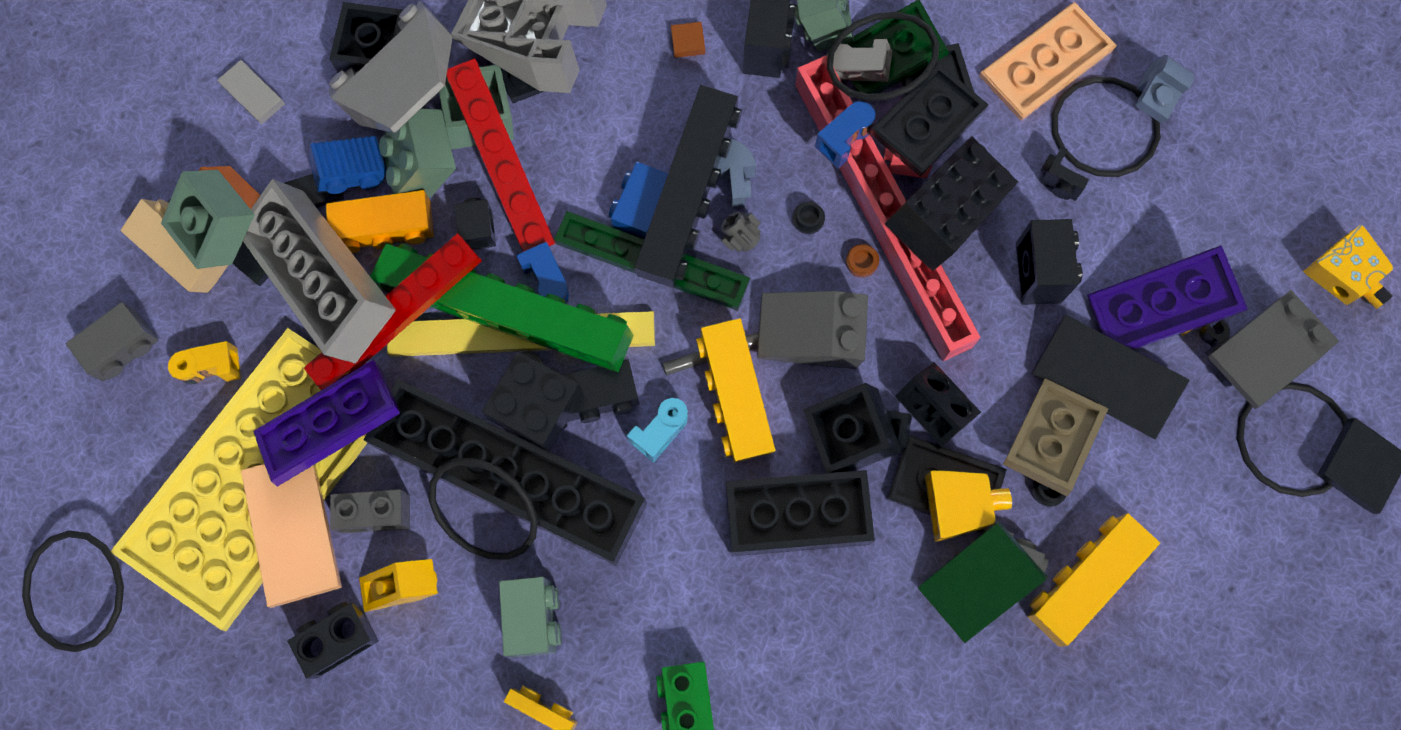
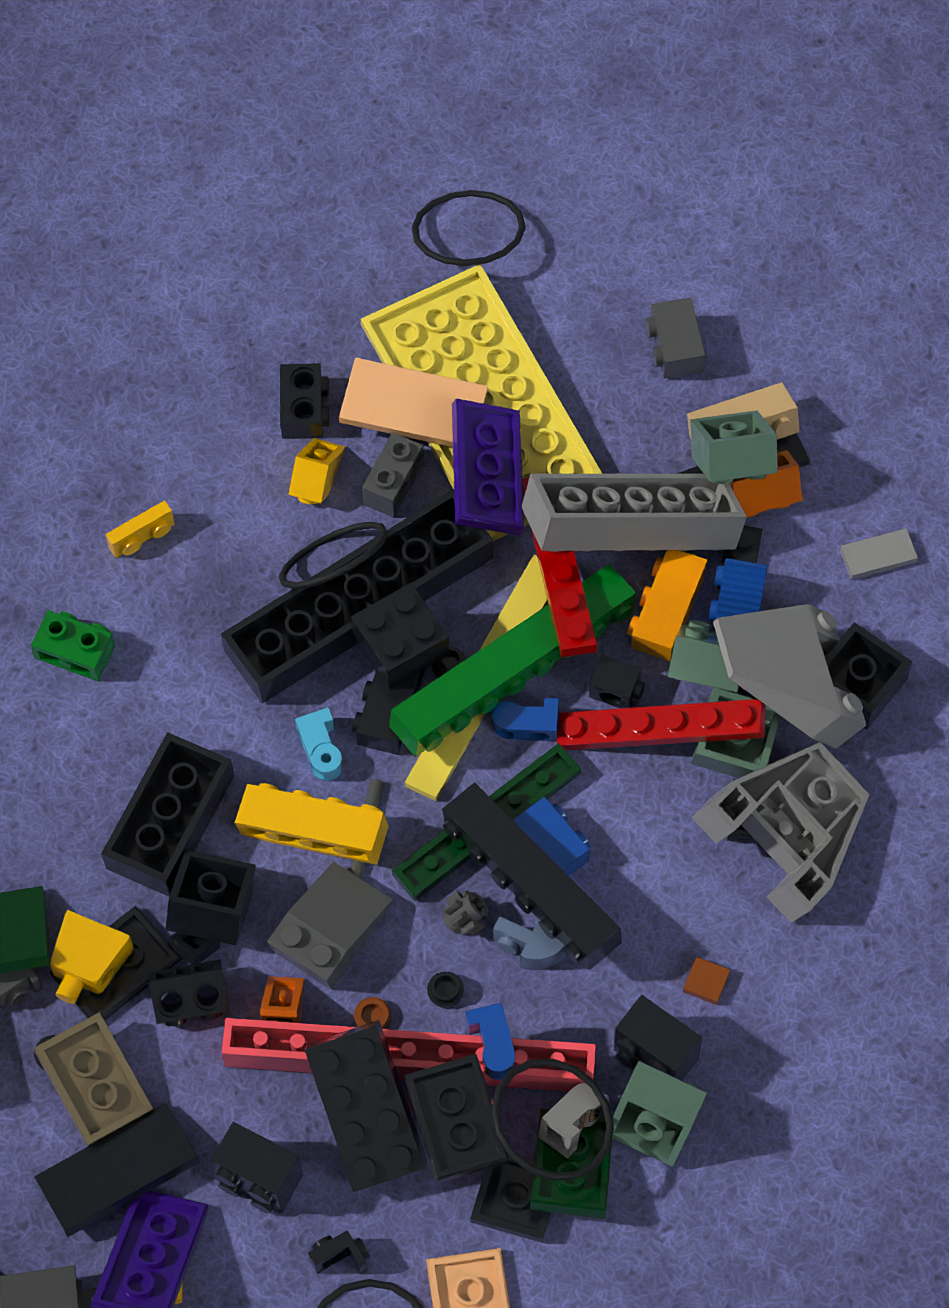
camera: 120 degrees right, 10 degrees down
(205, 361) = (618, 398): yellow leg -> none
(529, 617) = (219, 551): sand green brick -> none
(898, 328) = (282, 999): none -> orange slope

